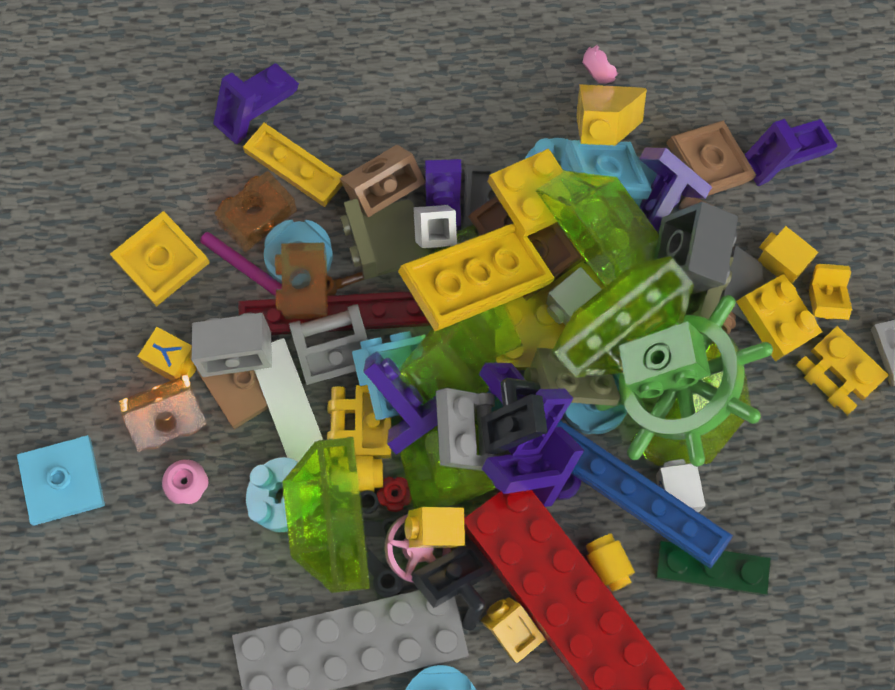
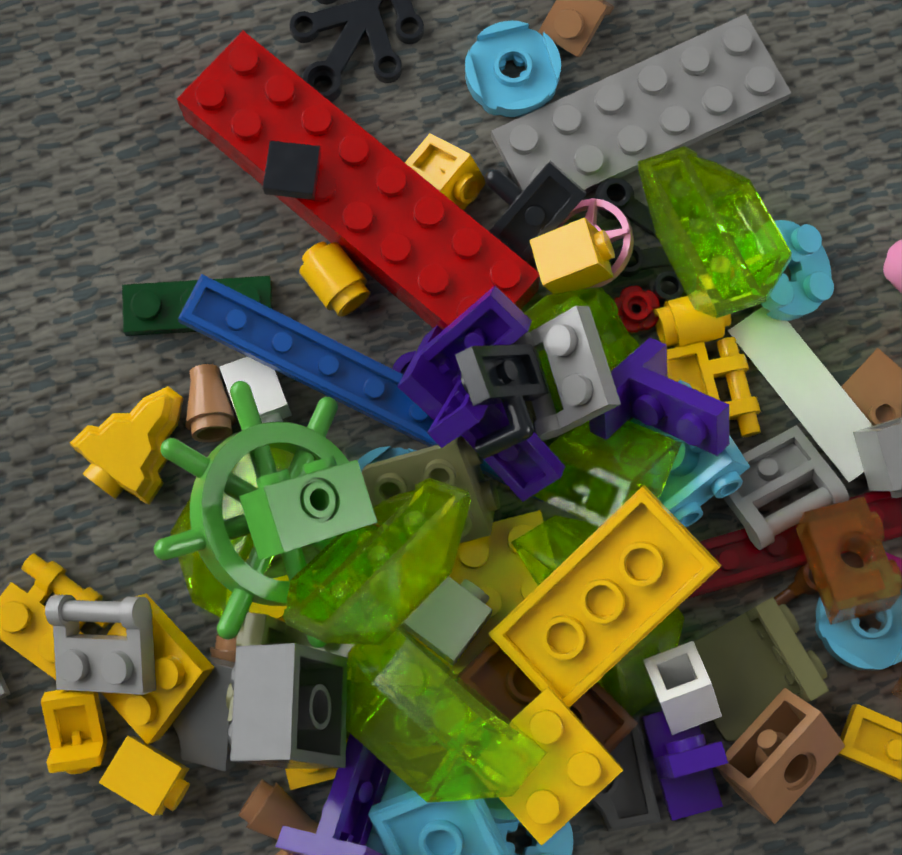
camera: 170 degrees right, 5 degrees up
(632, 633) = (292, 170): none -> black tile
(716, 490) = (208, 408): none -> medium nougat cone
(774, 471) = (127, 446): none -> yellow rock
(808, 329) = (103, 661): none -> light grey plate

